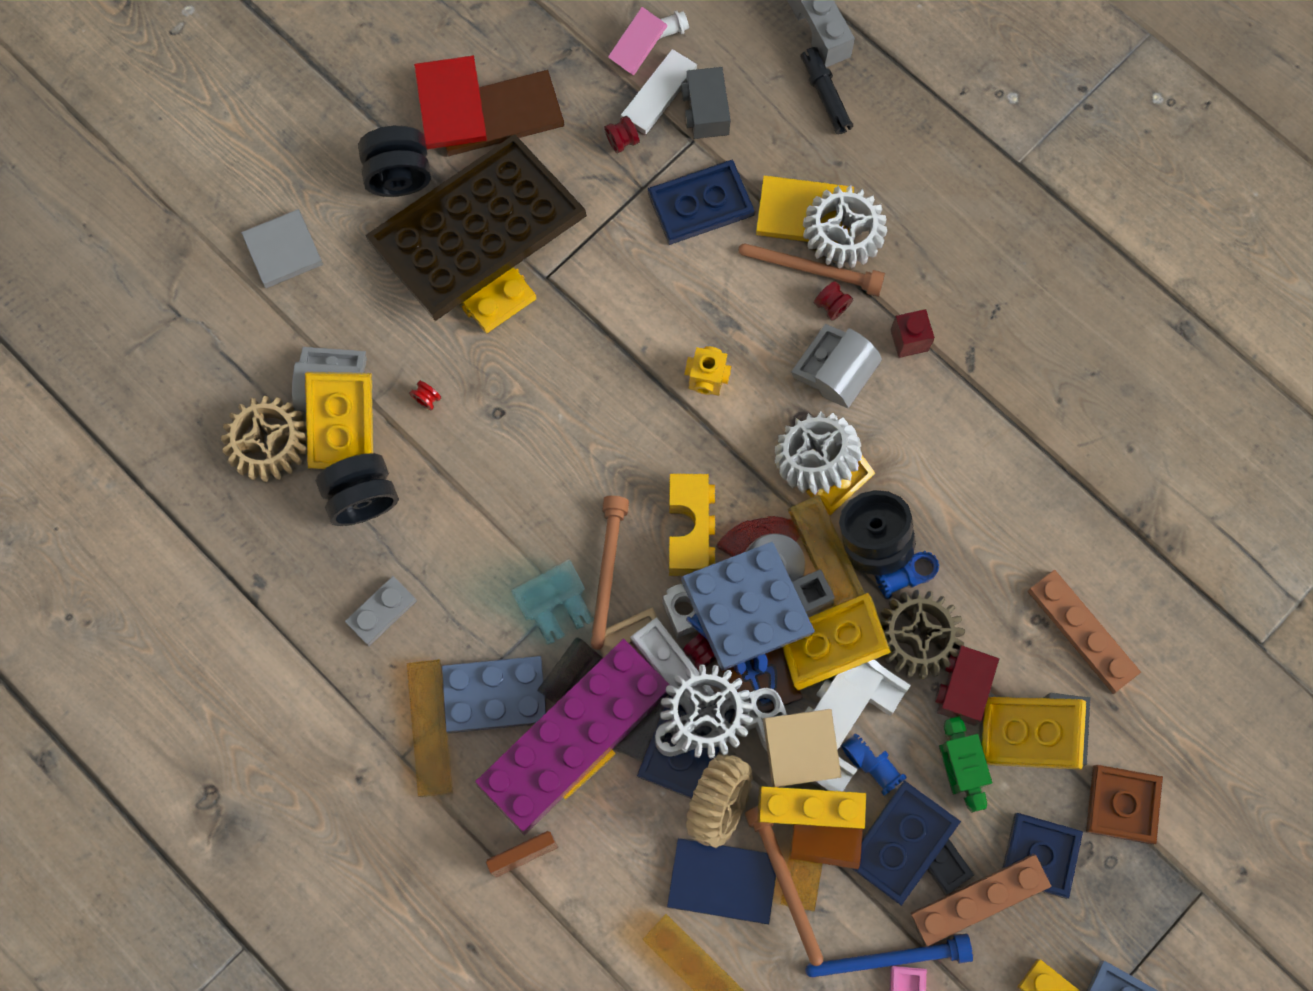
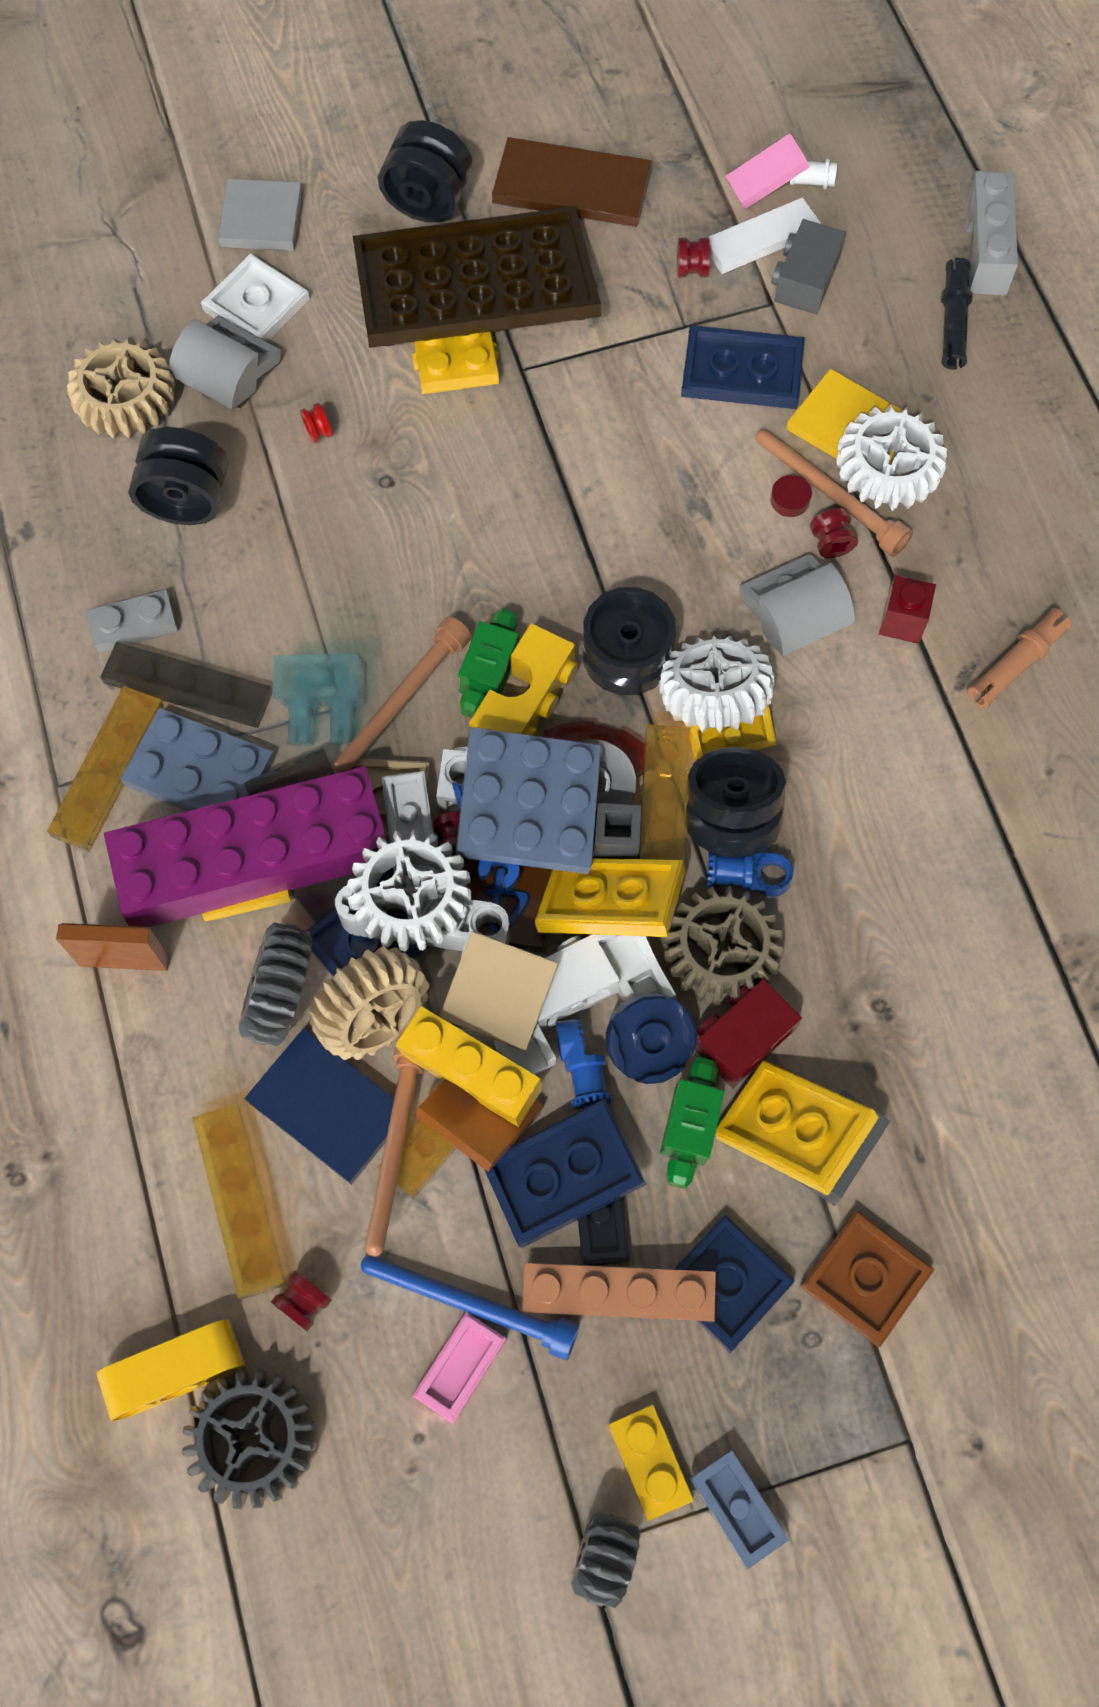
camera: 30 degrees right, 5 degrees down
(319, 318) = (256, 298): none -> white tile
(338, 416) = (210, 389): yellow tile -> none
(448, 638) = (187, 684): none -> clear smoke tile
(450, 102) = (524, 145): red tile -> none
(649, 821) = (275, 984): none -> dark grey gear
(653, 515) = (487, 660): none -> green piece
(707, 370) = (642, 539): yellow brick -> none
(741, 433) = (627, 640): none -> black wheel
(787, 285) = (791, 496): none -> dark red tile
(909, 722) = (650, 1037): none -> dark blue tile
(1005, 318) = (1031, 646): none -> nougat pin
(1084, 631) = (931, 1048): nougat plate -> none

